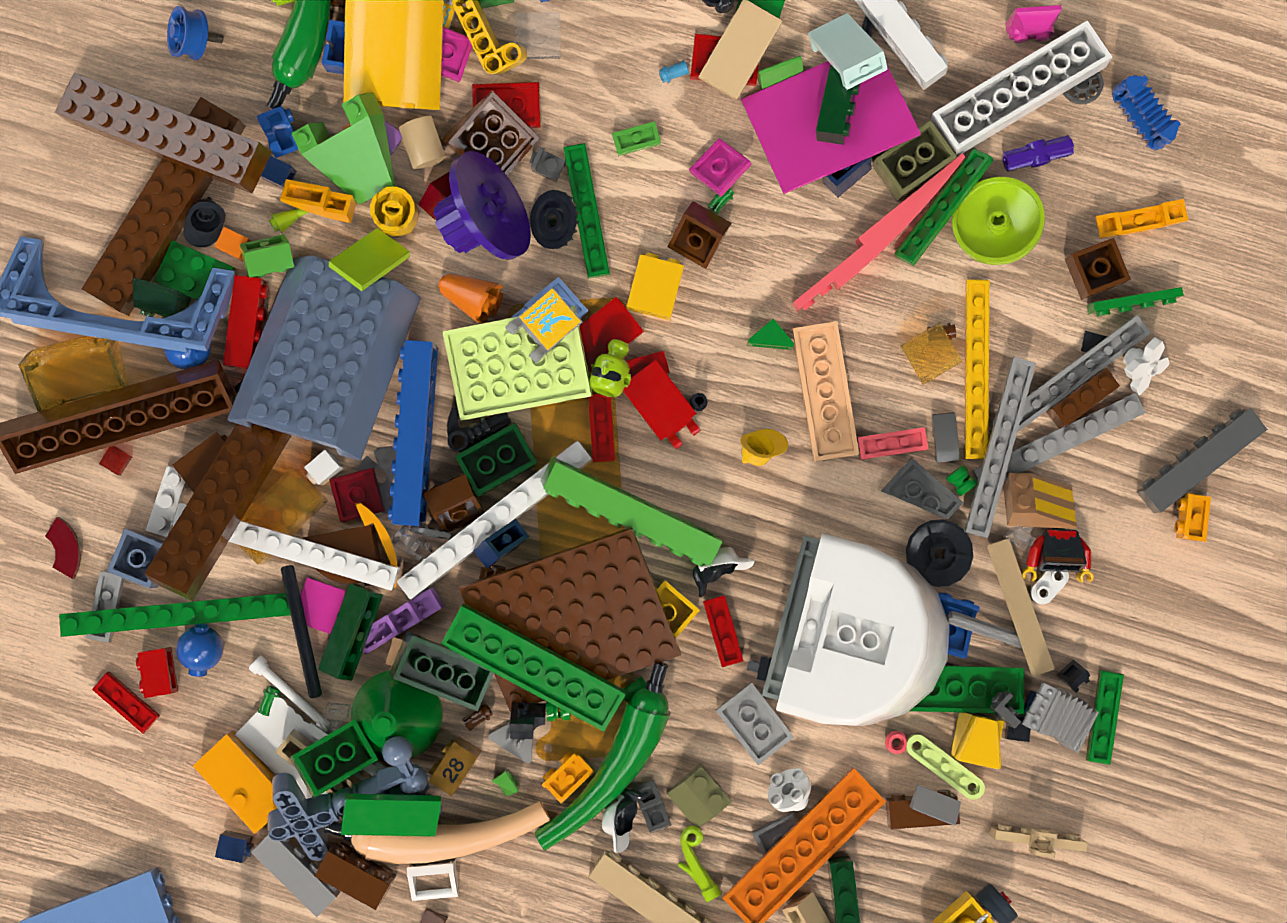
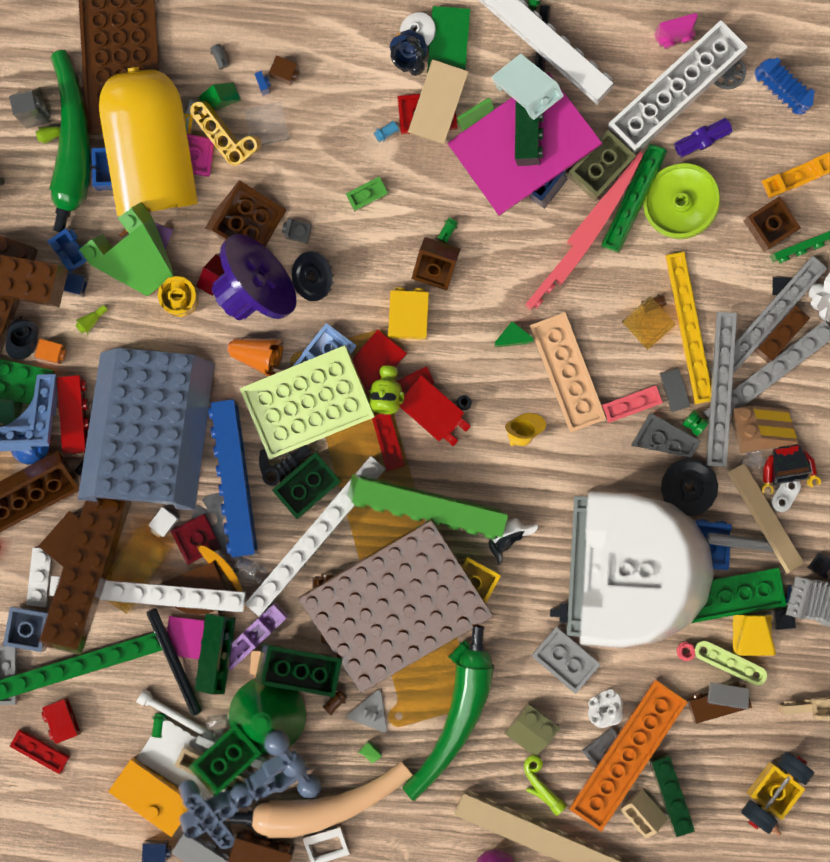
camera: 10 degrees left, 0 degrees up
(199, 649) = (92, 694): blue brick -> none
(267, 256) = (80, 355): bright green brick -> none
(319, 200) = (113, 300): light orange slope -> none
(369, 259) = (166, 341): lime tile -> none
(390, 815) = (281, 797): green tile -> none
(422, 142) = (189, 234): tan brick -> none
(430, 532) = (264, 557): dark grey wheel -> none
(453, 768) = (325, 746): pearl gold brick -> none
(454, 504) = (278, 529): reddish brown slope -> none
(501, 543) = (325, 554): dark blue brick -> none
(519, 97) = (262, 179): red tile -> none
(526, 718) = (375, 695): black brick -> none
(533, 667) = (373, 651): green plate -> none
(546, 322) = (325, 364): flag -> none
(553, 713) = (396, 682): green wheel -> none
(567, 776) = (420, 736): light orange bracket -> none
(588, 216) = (334, 253): green tile -> none
(619, 817) = (470, 760): hair -> none
(653, 807) = (495, 746): dark grey slope -> none
(720, 167) = (441, 203): dark pink tile -> none
(723, 631) = (523, 589): red plate -> none
(1006, 713) = (771, 608): dark grey bracket -> none

